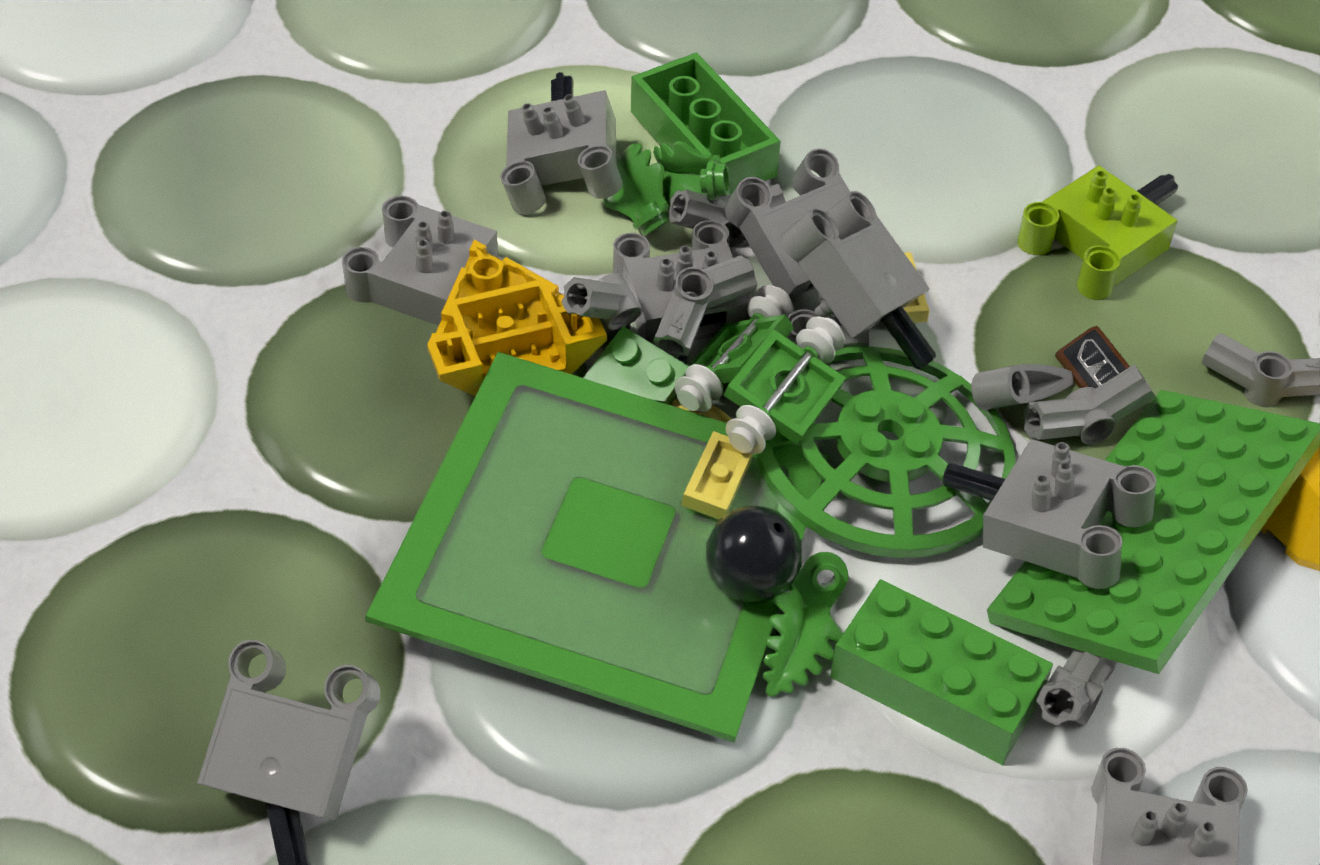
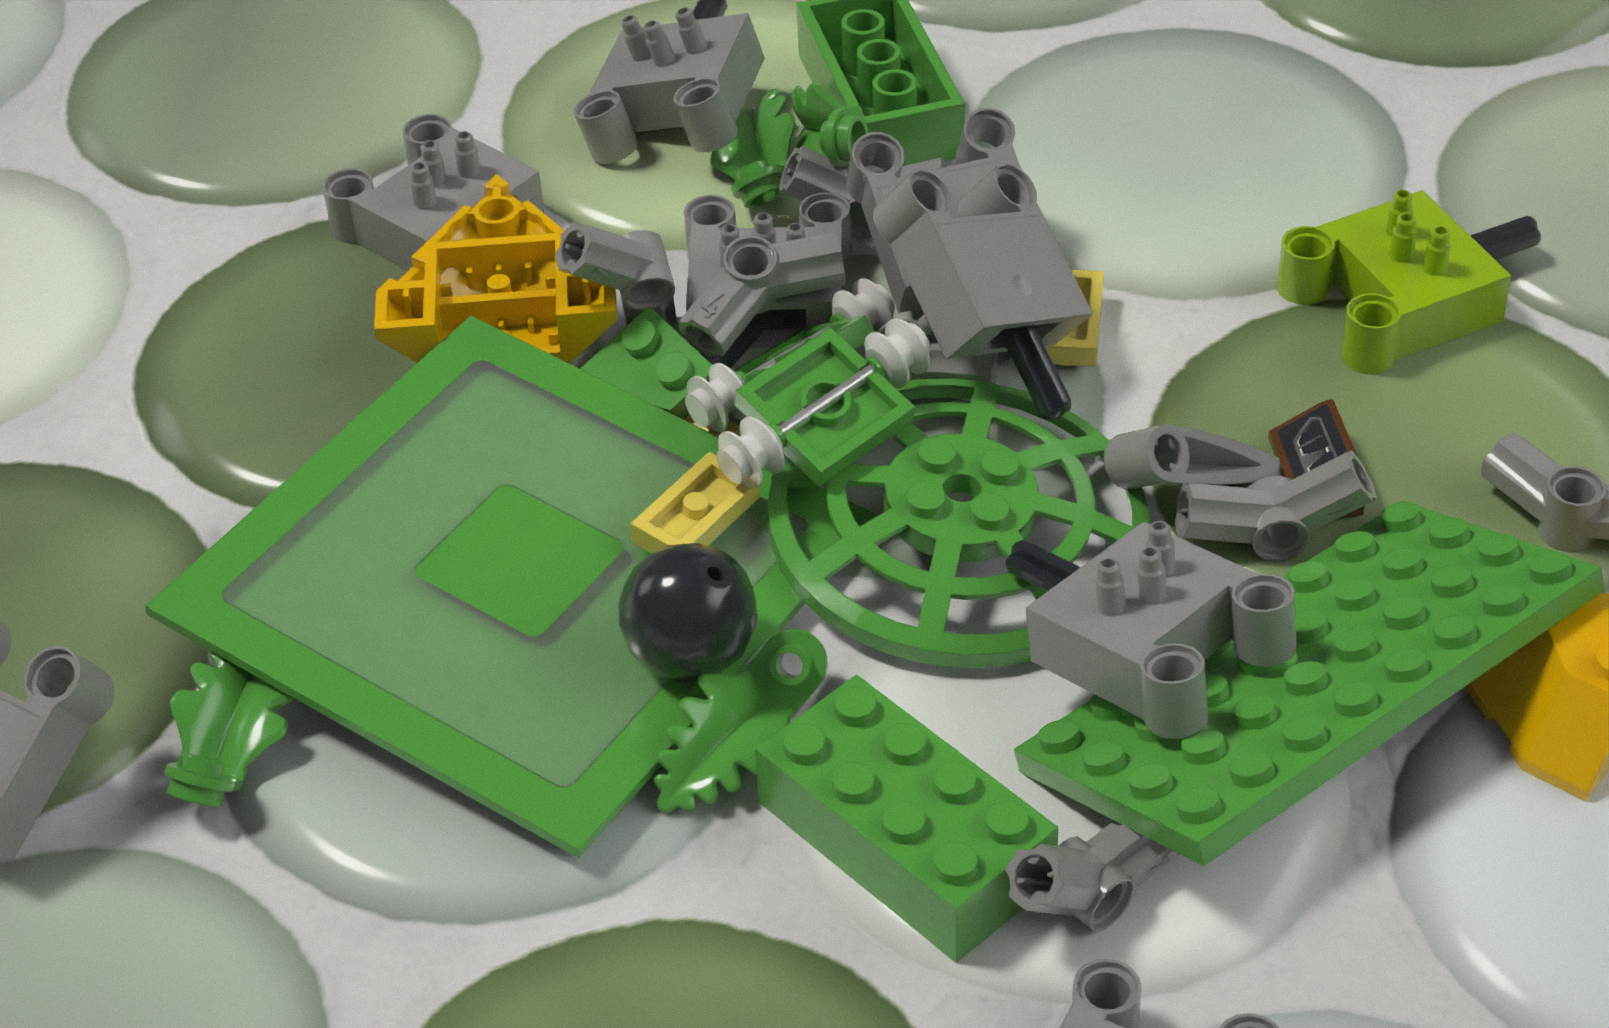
camera: 20 degrees right, 5 degrees down
(450, 696) = (222, 730): none -> bright green plant

